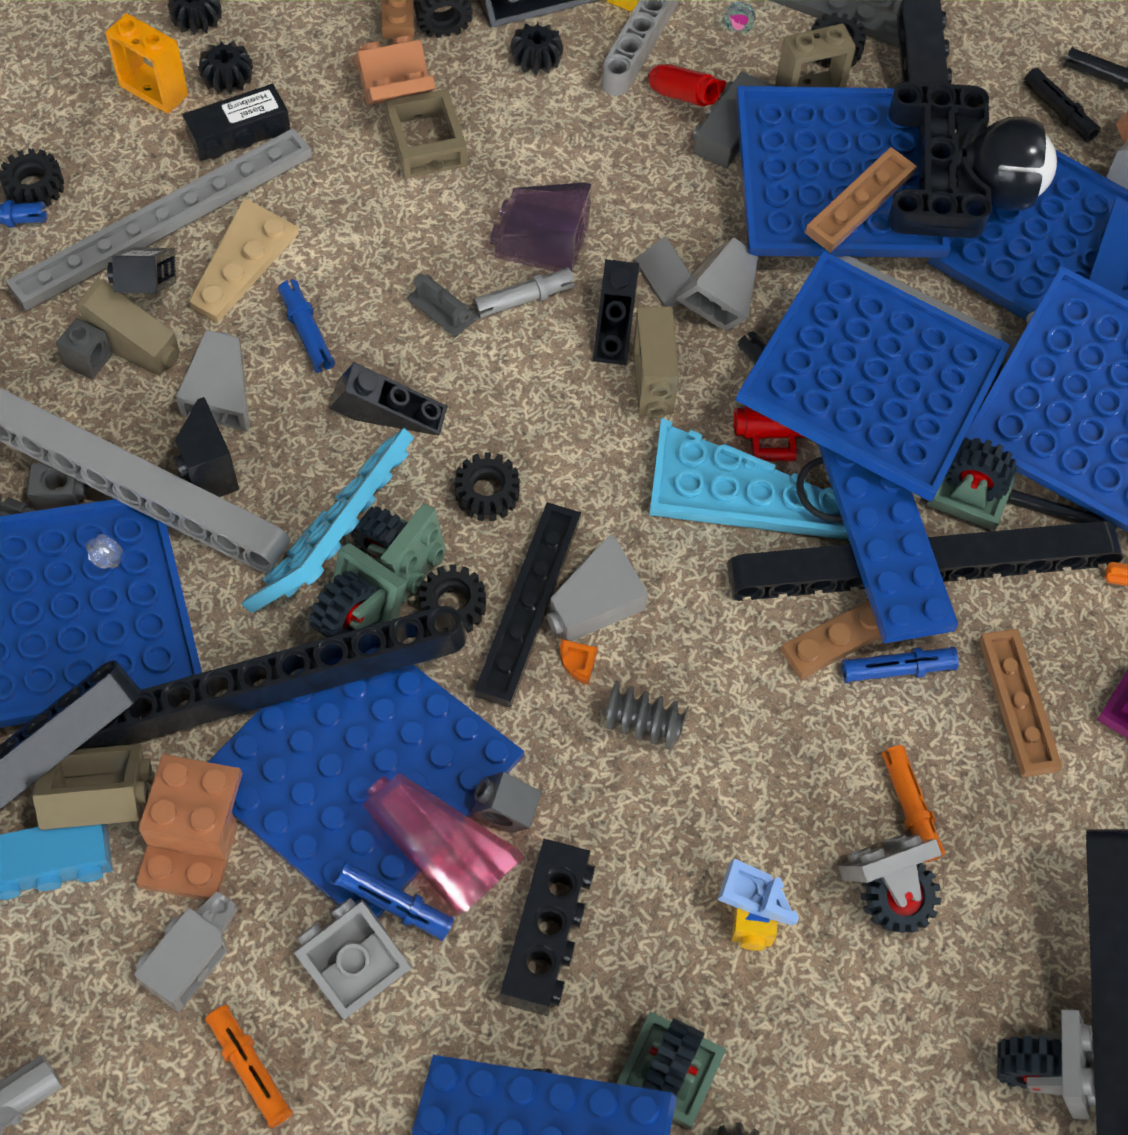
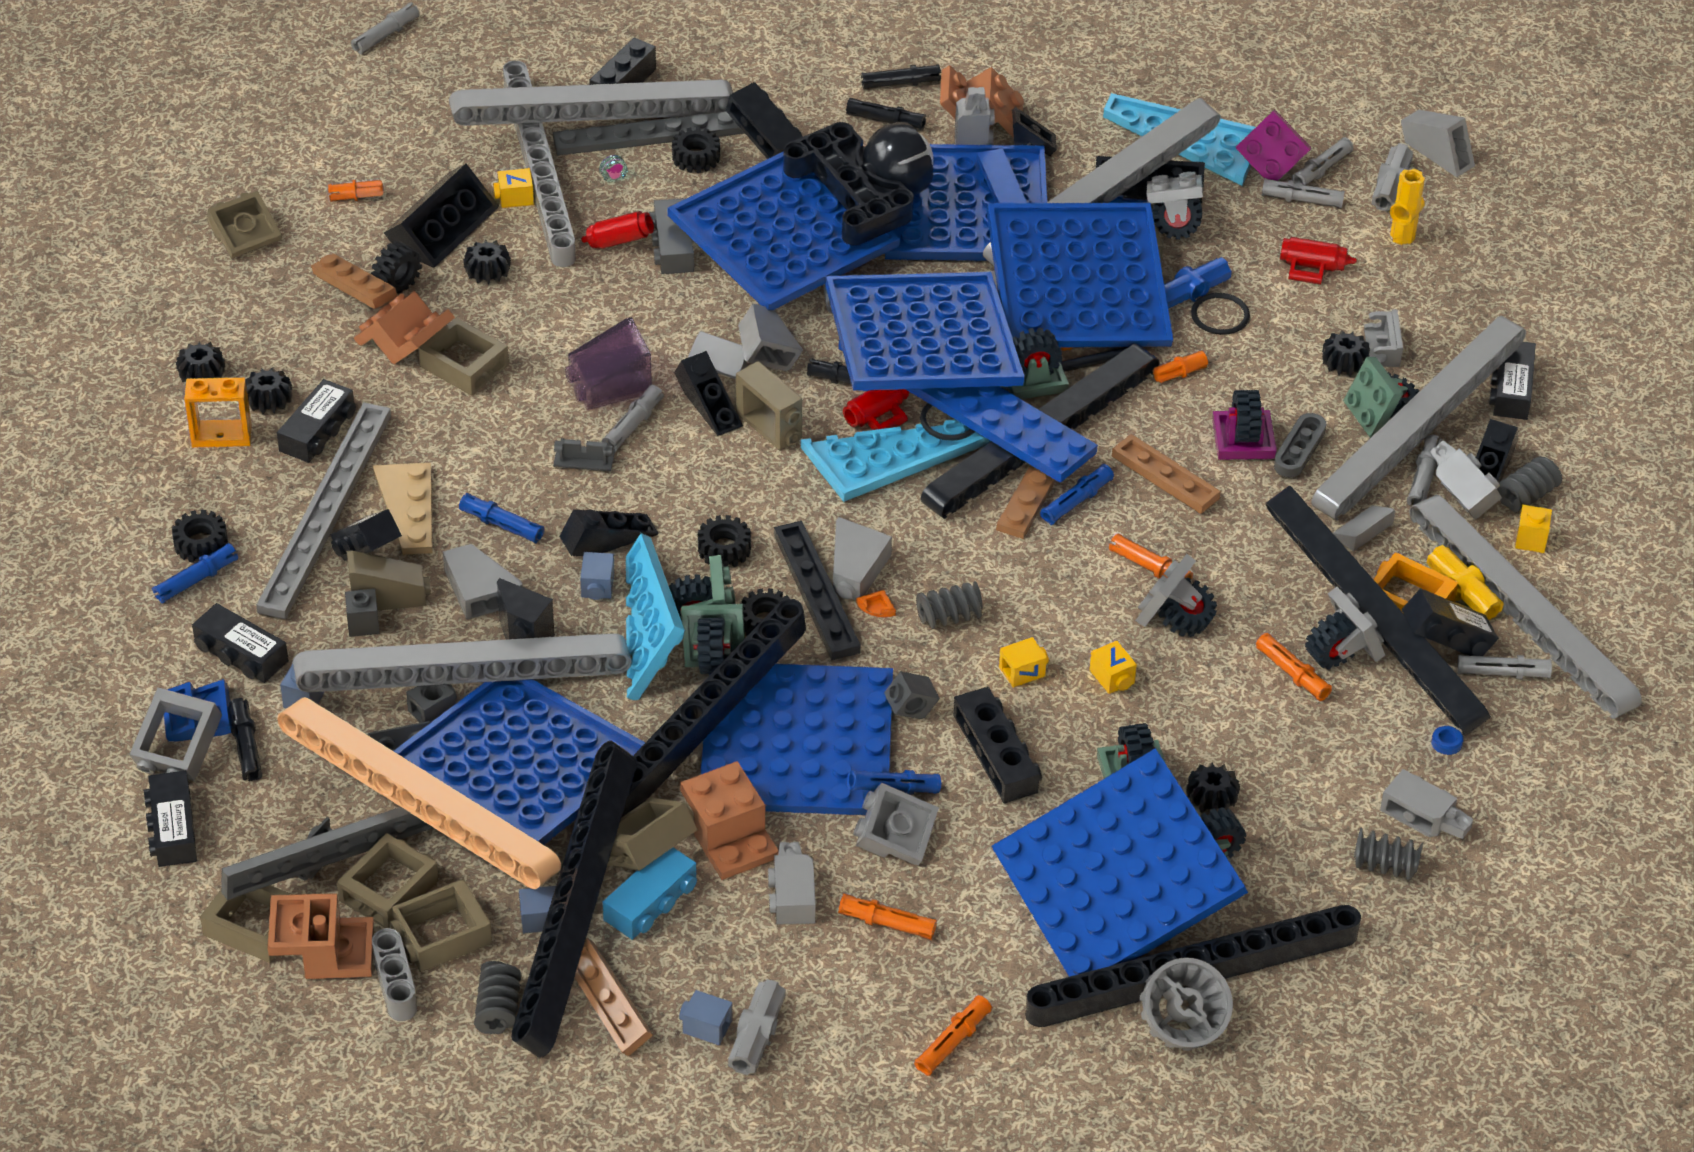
camera: 35 degrees left, 15 degrees down
(104, 552) = (518, 706): clear plate -> none
(330, 447) = (597, 575): none -> sand blue brick
(441, 842) = (893, 733): clear pink slope -> none
(665, 840) = (1023, 662): none -> yellow brick
(756, 893) = (1107, 648): light blue slope -> none
(805, 48) = (708, 150): dark tan window -> none
(860, 199) = (818, 235): medium nougat plate -> none
(972, 1106) = (1302, 673): none -> orange pin

